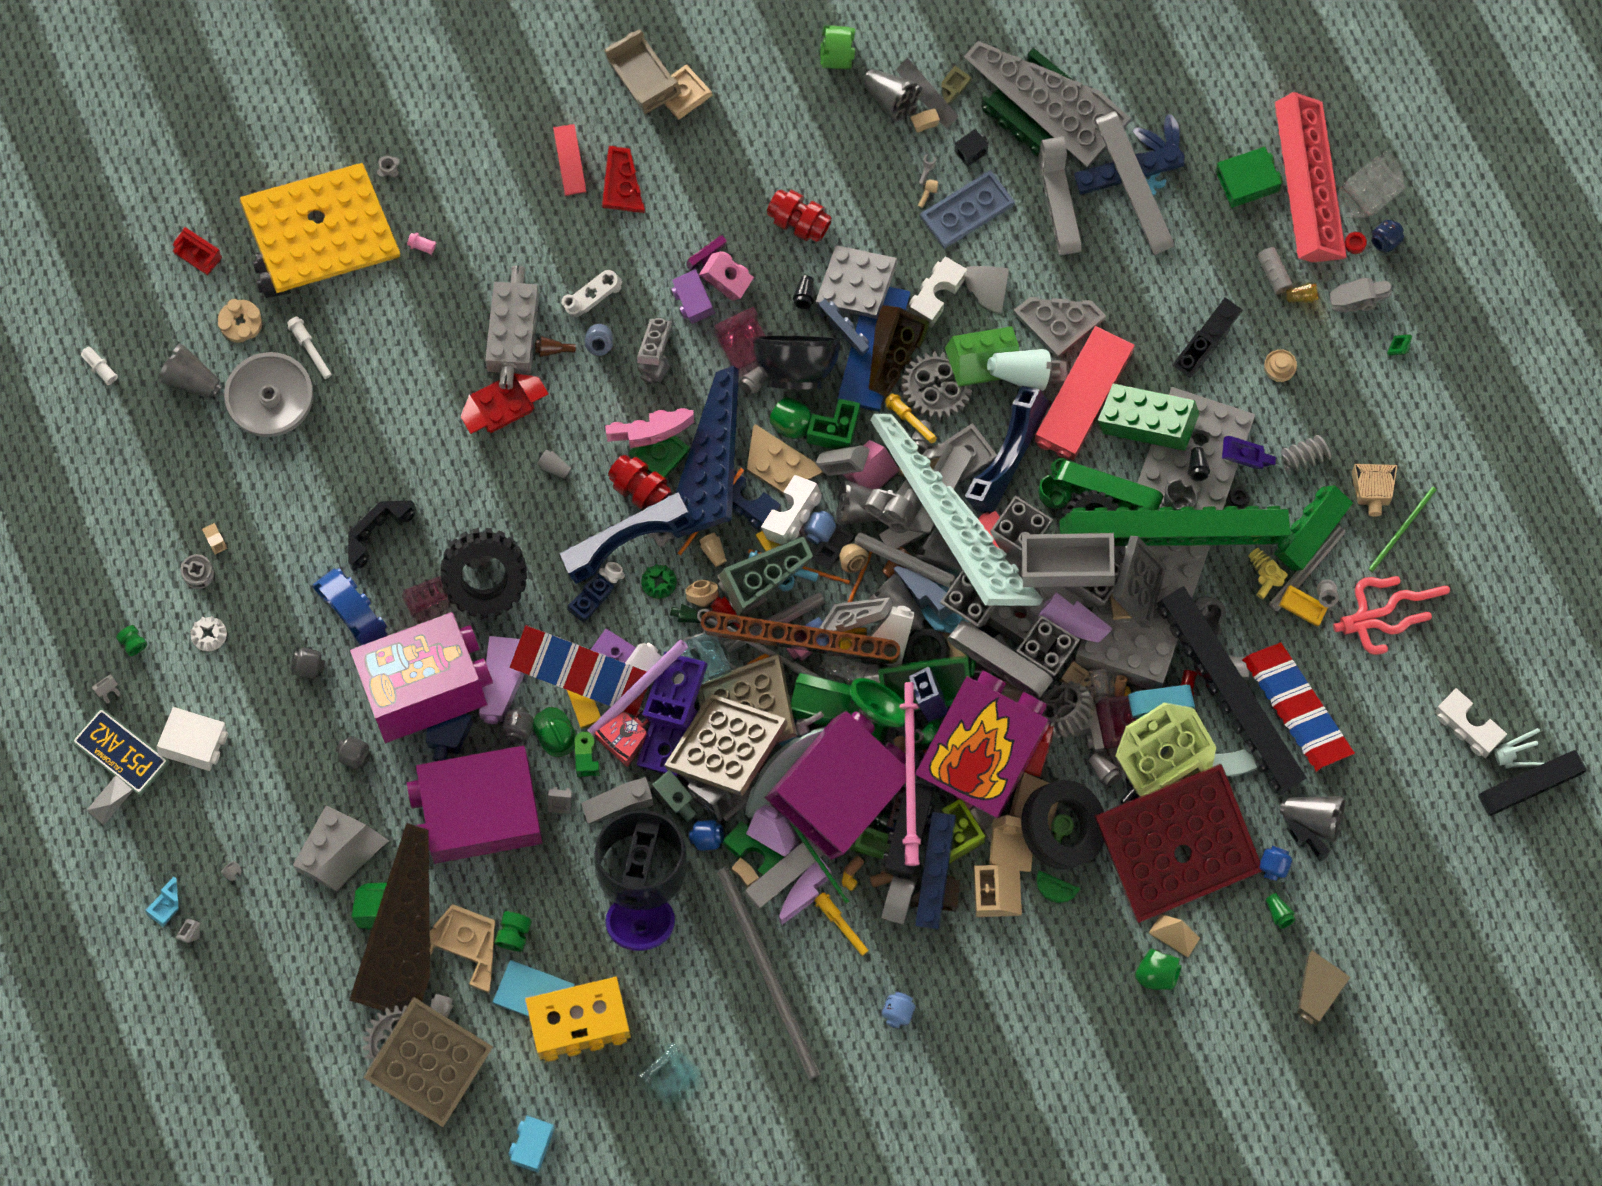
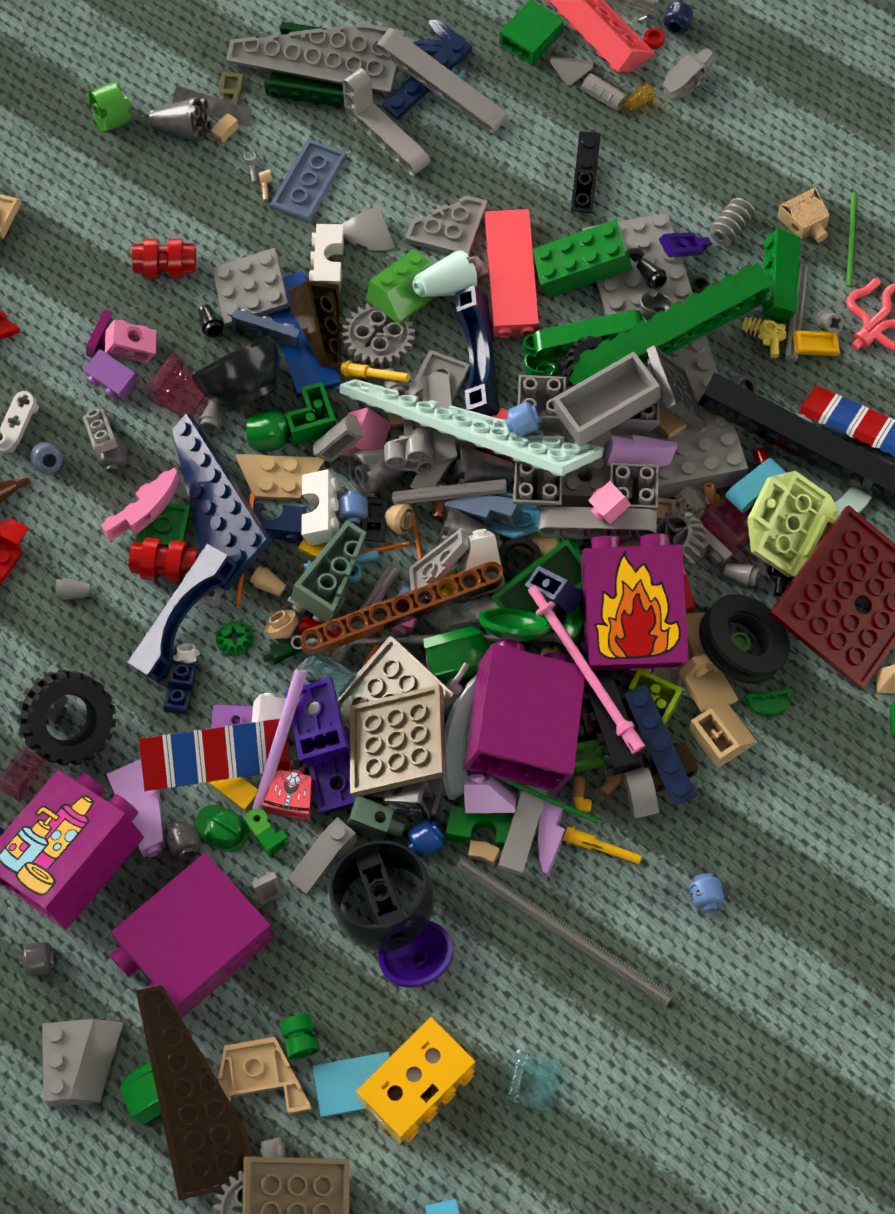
camera: 30 degrees left, 5 degrees down
(448, 736) = (122, 890): dark blue torso -> none
(971, 147) = (280, 128): black brick -> none
(992, 537) = (523, 419): none -> medium blue head
(1013, 649) = (608, 503): none -> bright pink brick
(1261, 230) = (571, 69): none -> light grey slope
(1280, 365) = (660, 163): tan plate -> none
(1400, 345) = (747, 96): green slope -> none

